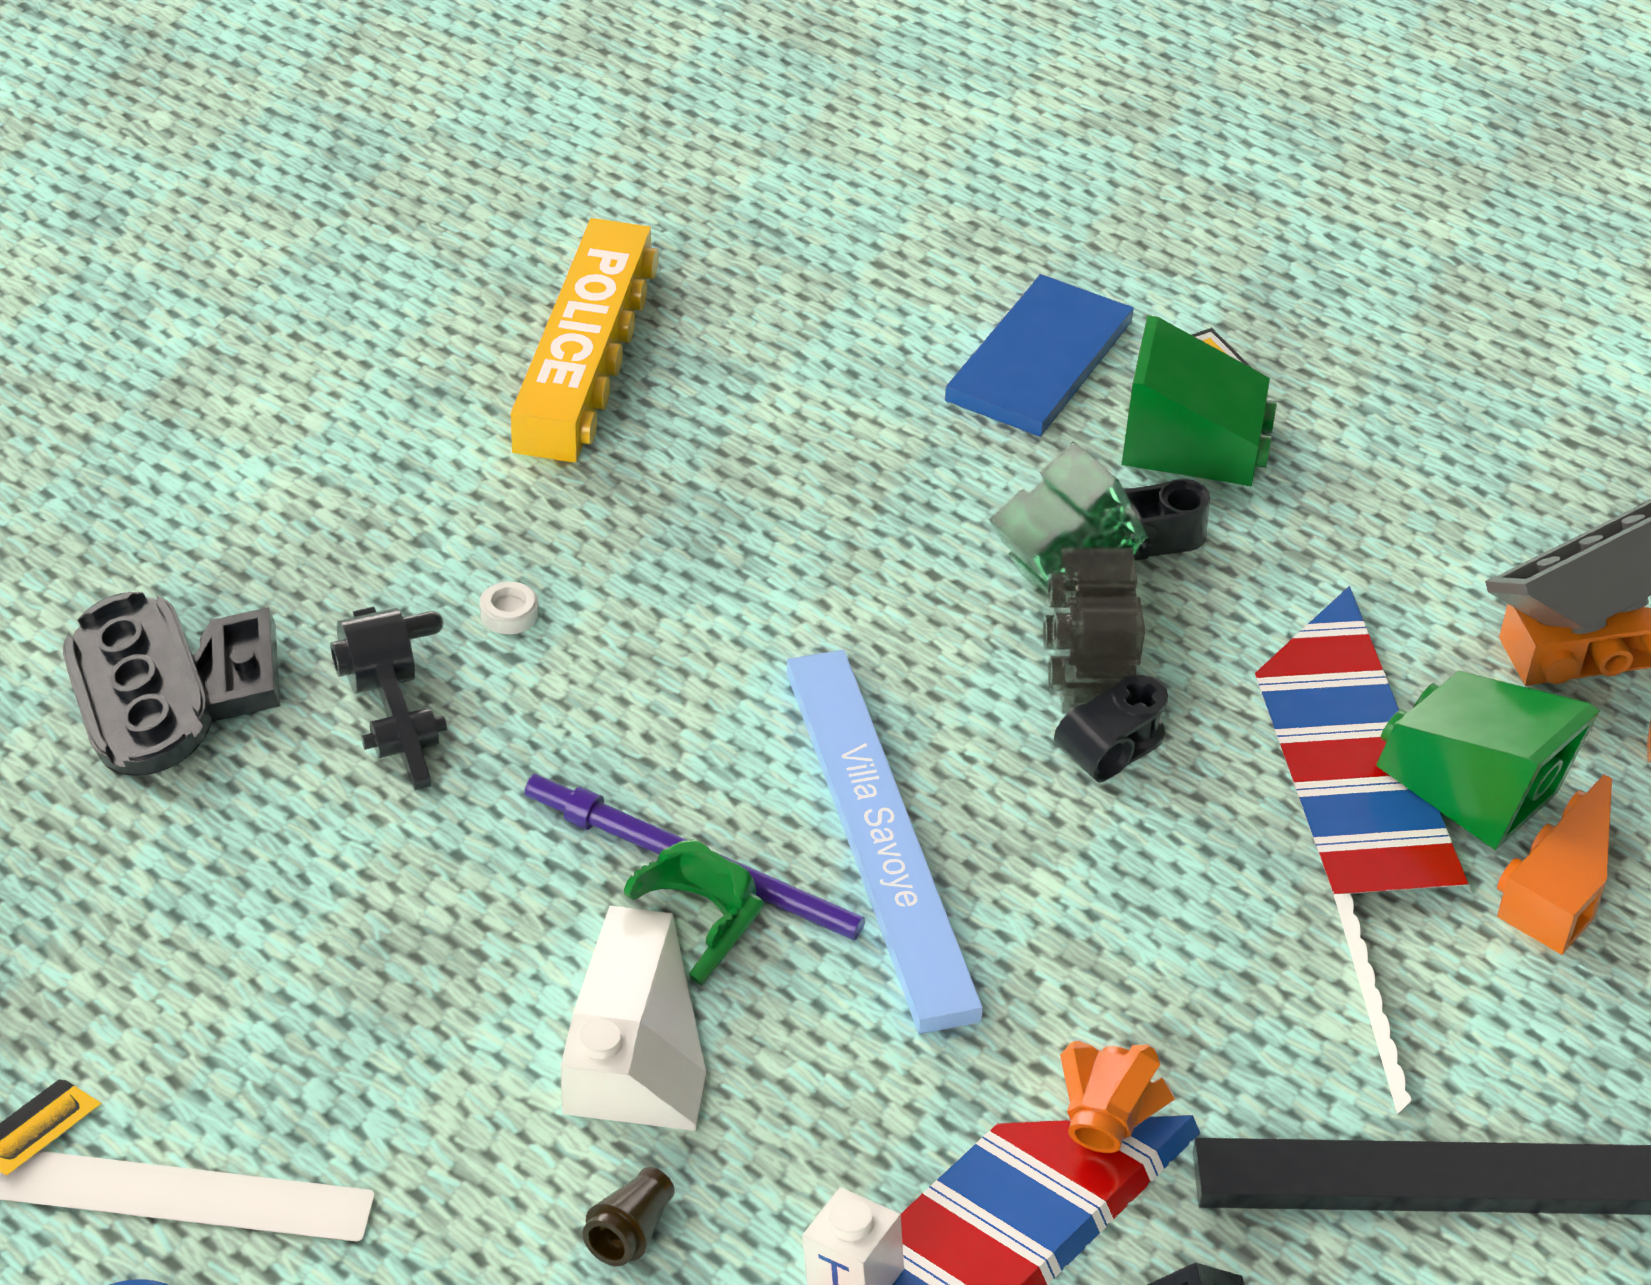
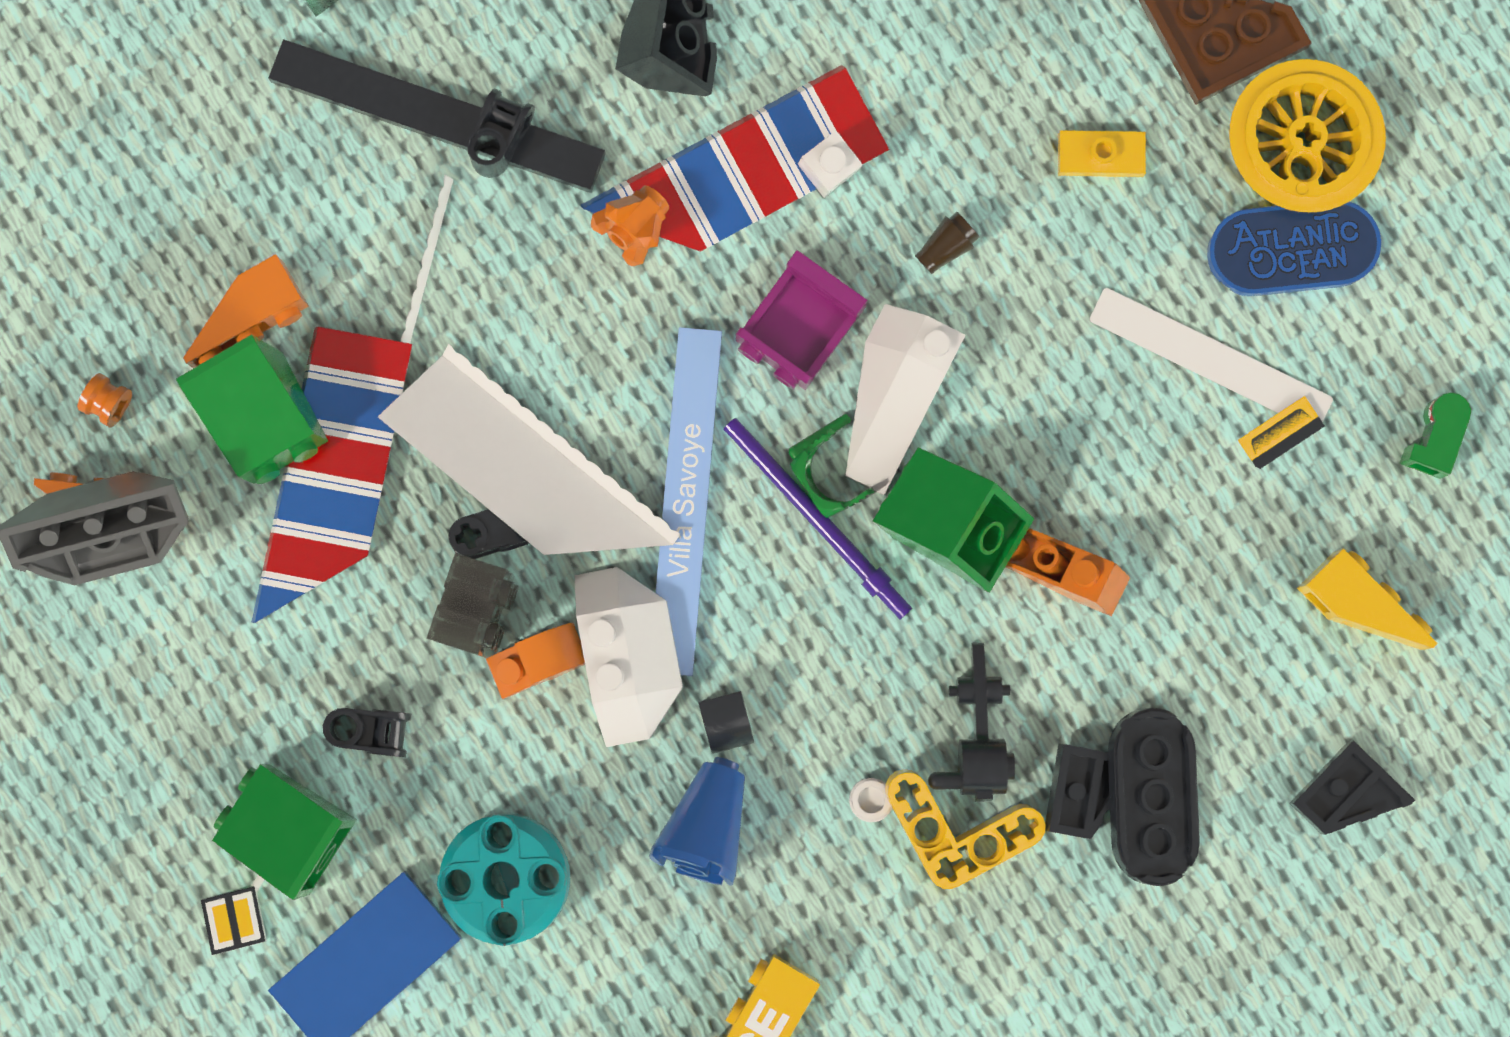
camera: 160 degrees left, 40 degrees up
(324, 872) = (1070, 571): none -> orange slope
(382, 573) = (947, 846): none -> yellow beam
(505, 869) = (954, 518): none -> green slope
(706, 510) = (705, 825): none -> blue cone
(728, 630) = (726, 722): none -> black brick
(812, 1057) = (800, 322): none -> magenta panel
(893, 661) = (626, 654): none -> white wedge
(922, 436) = (519, 866): none -> teal piece
(981, 624) = (536, 660): none -> orange brick
(1071, 508) = (451, 700): clear green brick -> none
(1127, 794) = (518, 464): none -> white sticker
(1369, 1149) = (500, 125): none -> black piece

